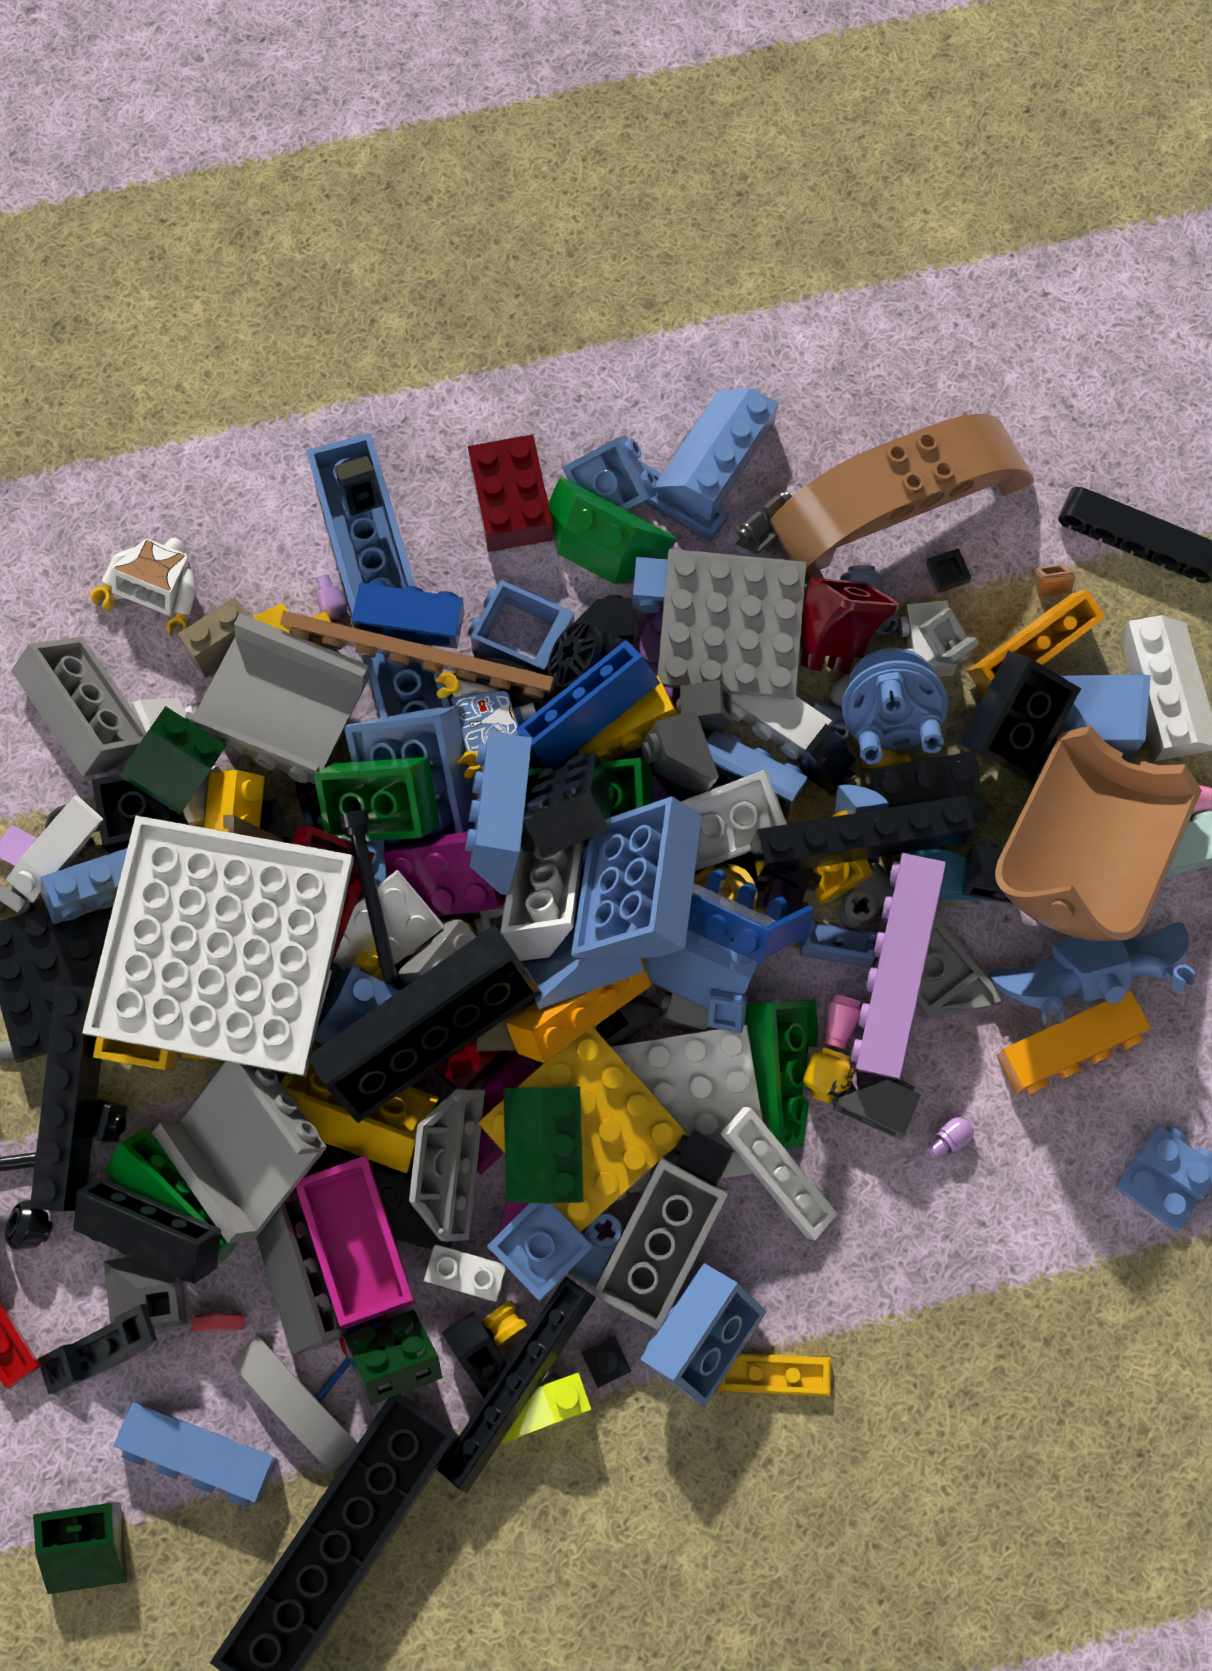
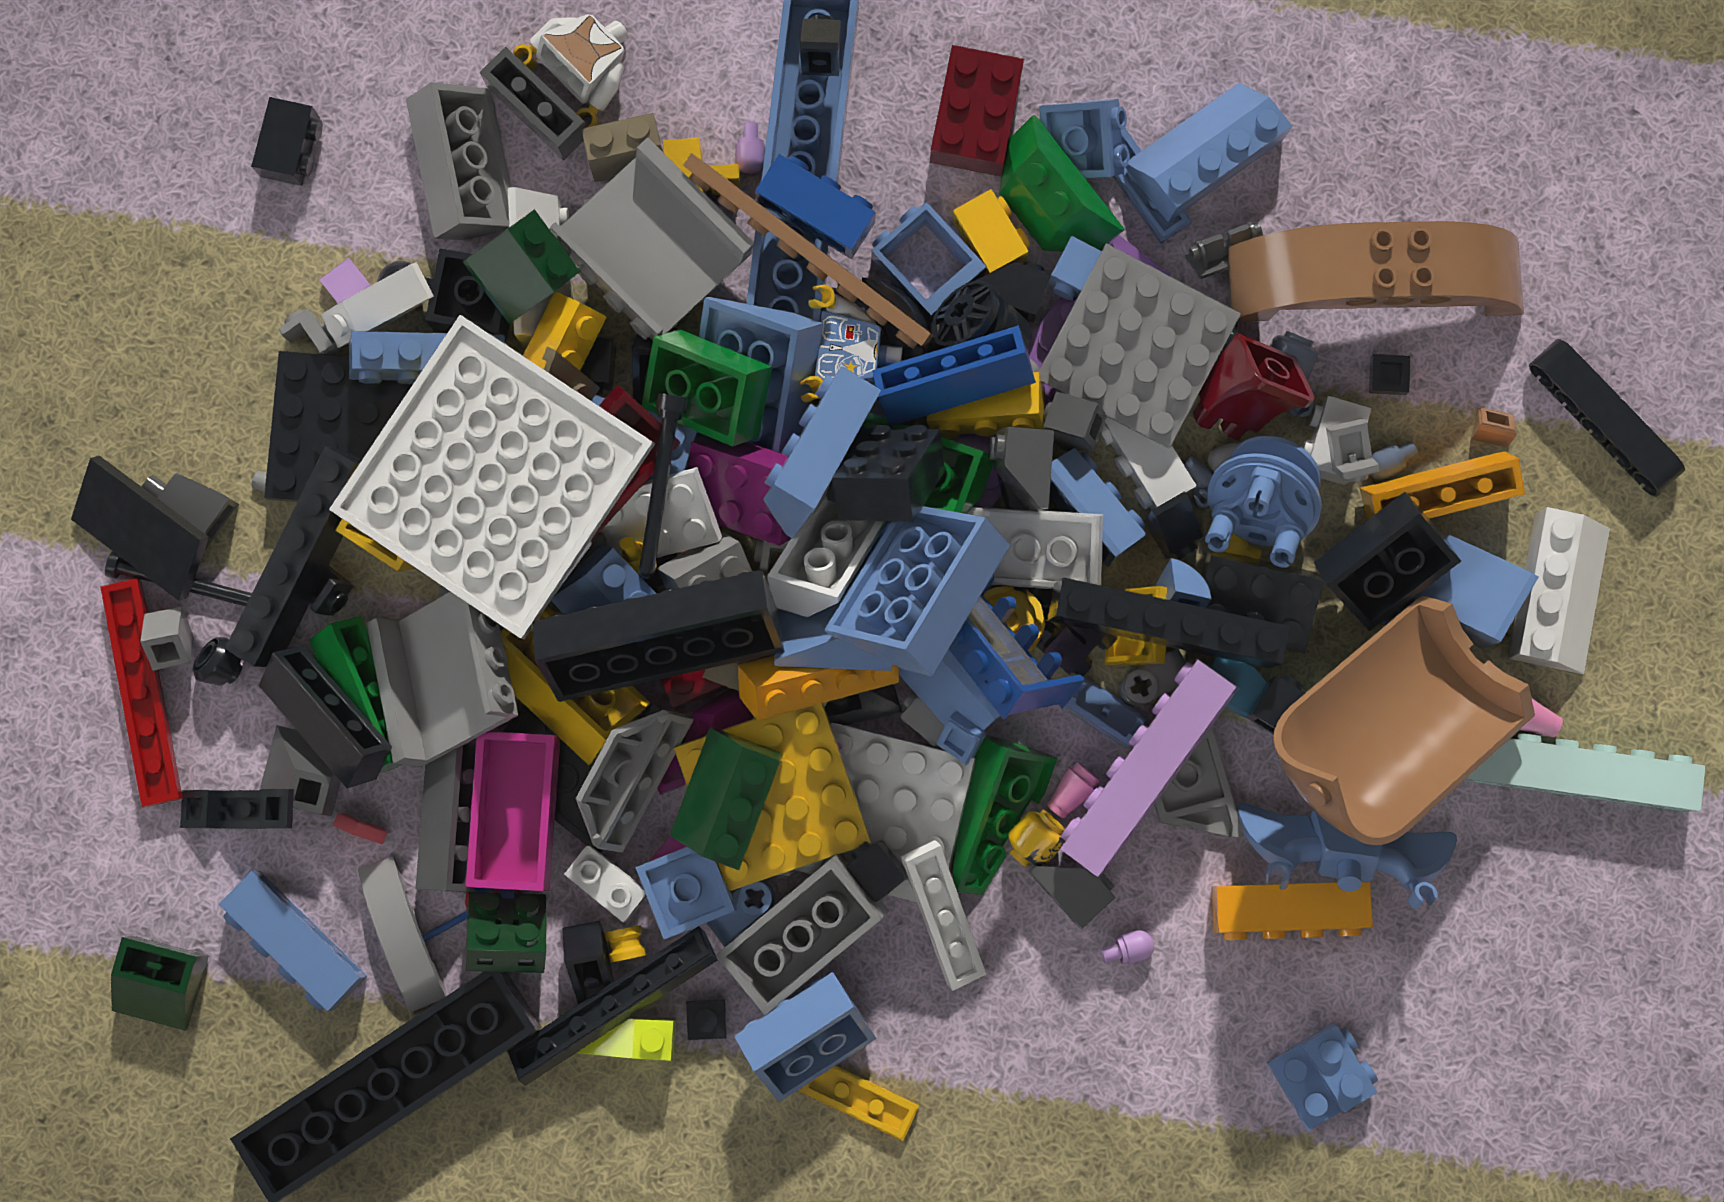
camera: 25 degrees right, 10 degrees up
(126, 630) = (534, 103): none -> dark grey brick
(564, 584) = (989, 232): none -> yellow brick
(986, 637) = (1392, 459): none -> sand blue cylinder

